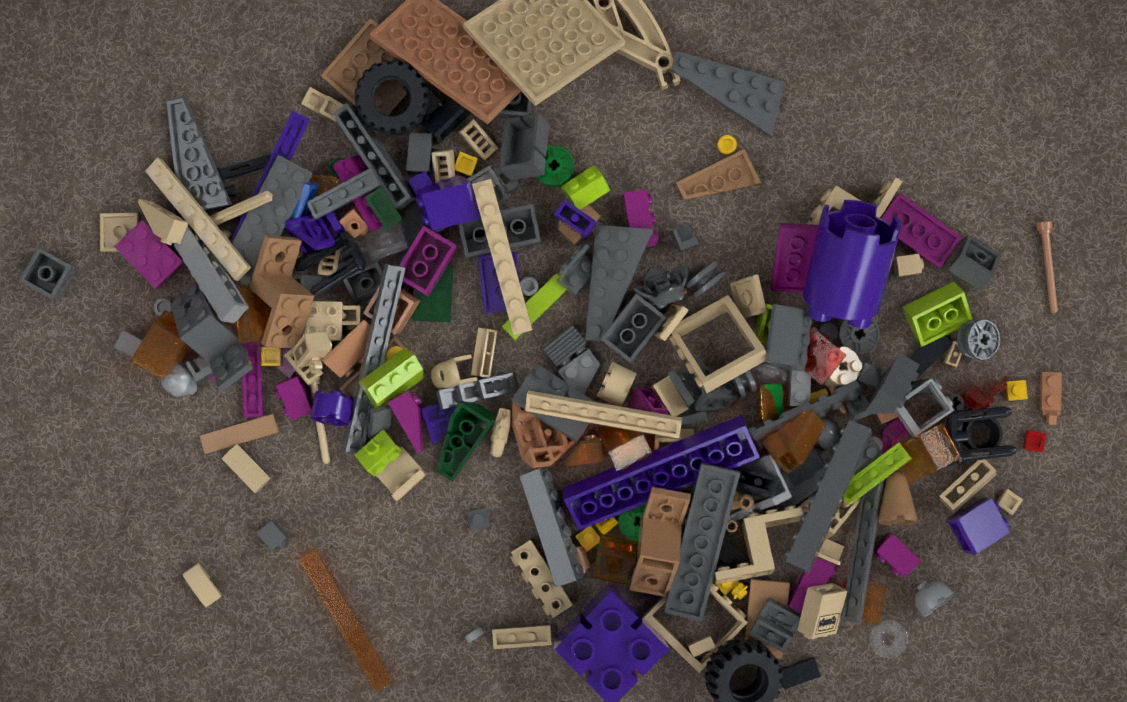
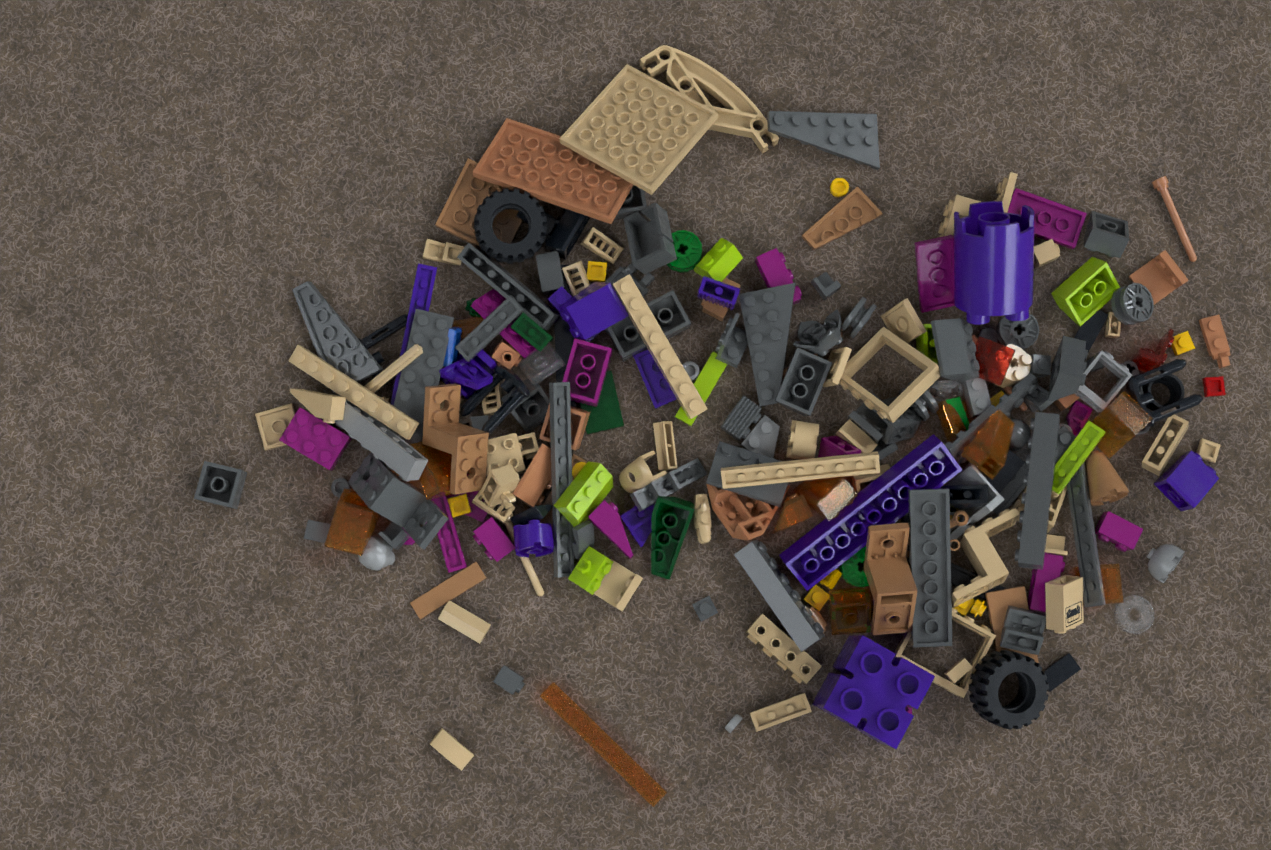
camera: 20 degrees left, 5 degrees down
(339, 385) = (533, 513): none -> black slope
(1013, 319) = (1159, 276): none -> nougat bracket

